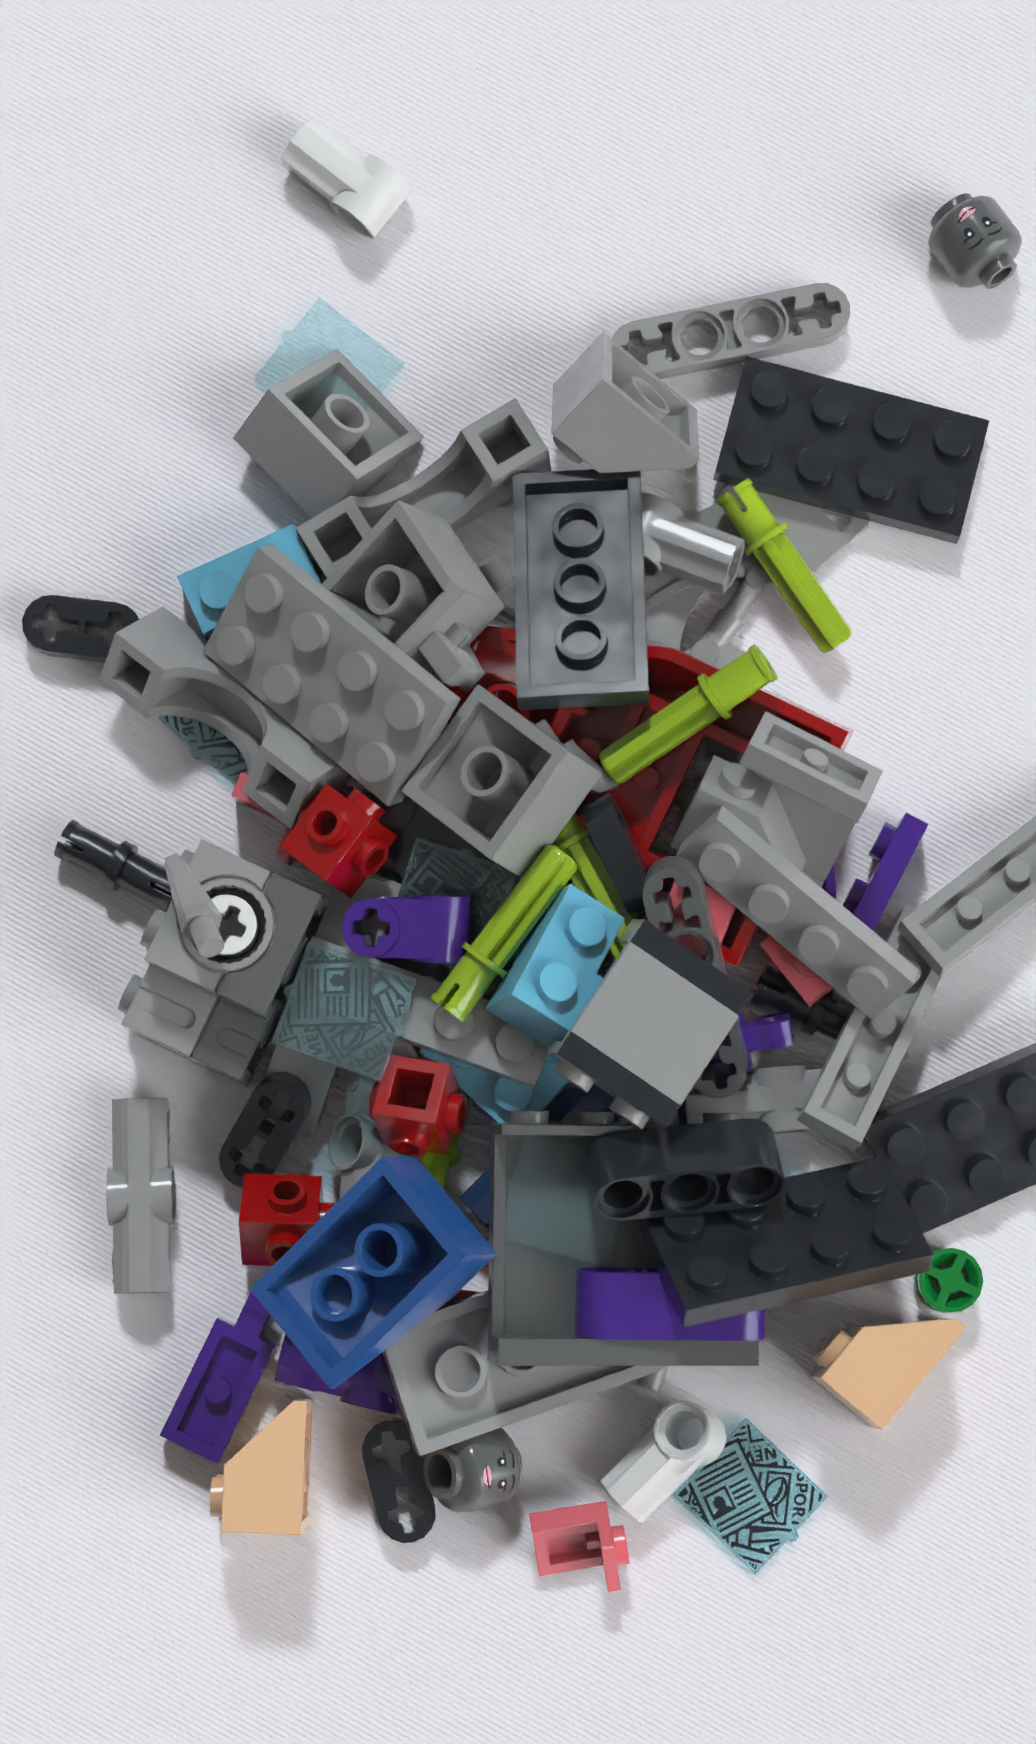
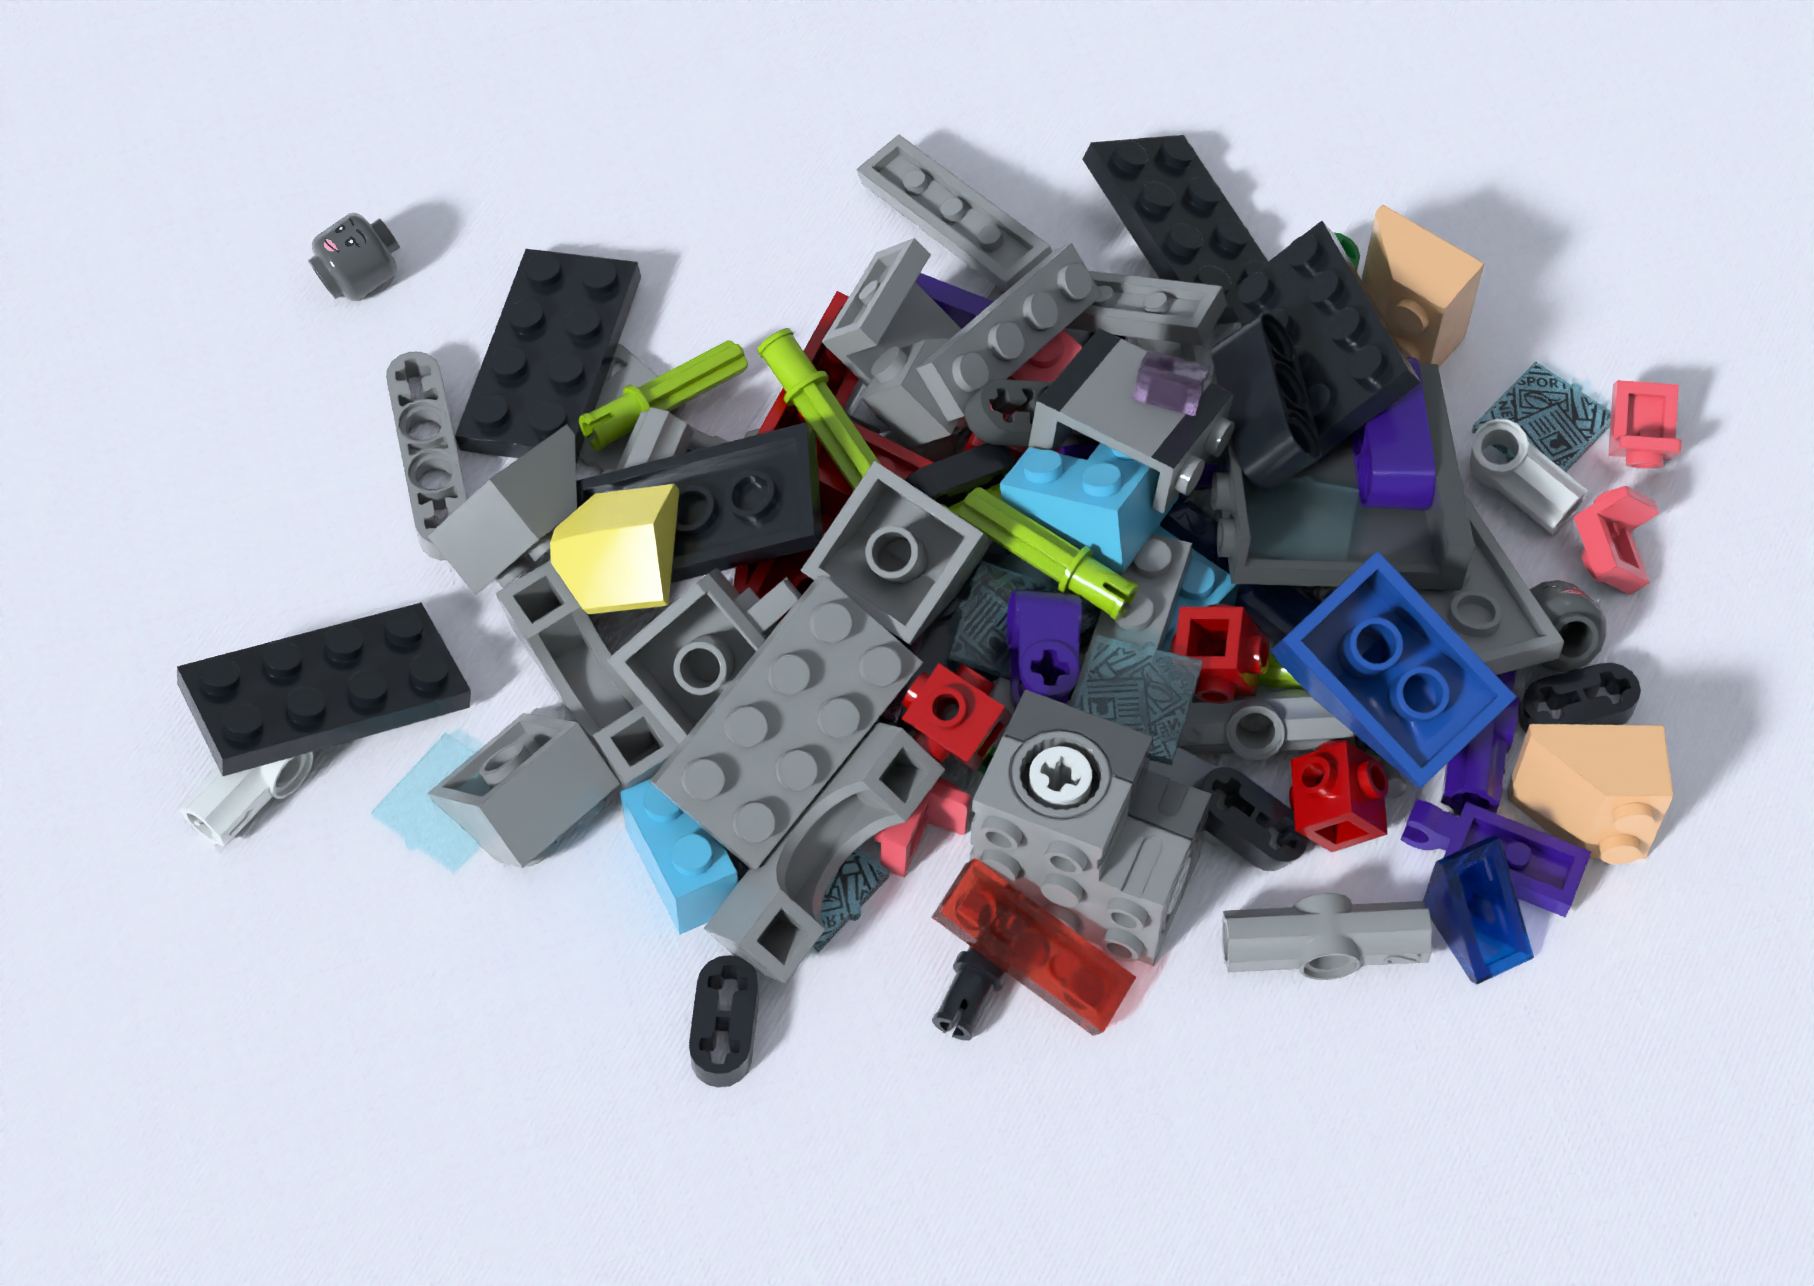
camera: 90 degrees left, 25 degrees down
(114, 923) = (1034, 947): none -> clear red plate
(153, 1347) = (1478, 910): none -> clear blue slope
(194, 909) = (1050, 792): light grey bar -> none
(434, 241) = (322, 688): none -> black plate
(544, 513) = (619, 549): none -> light yellow slope
(670, 1060) = (1170, 382): none -> clear purple slope
(728, 1597) = (1644, 423): none -> coral bracket

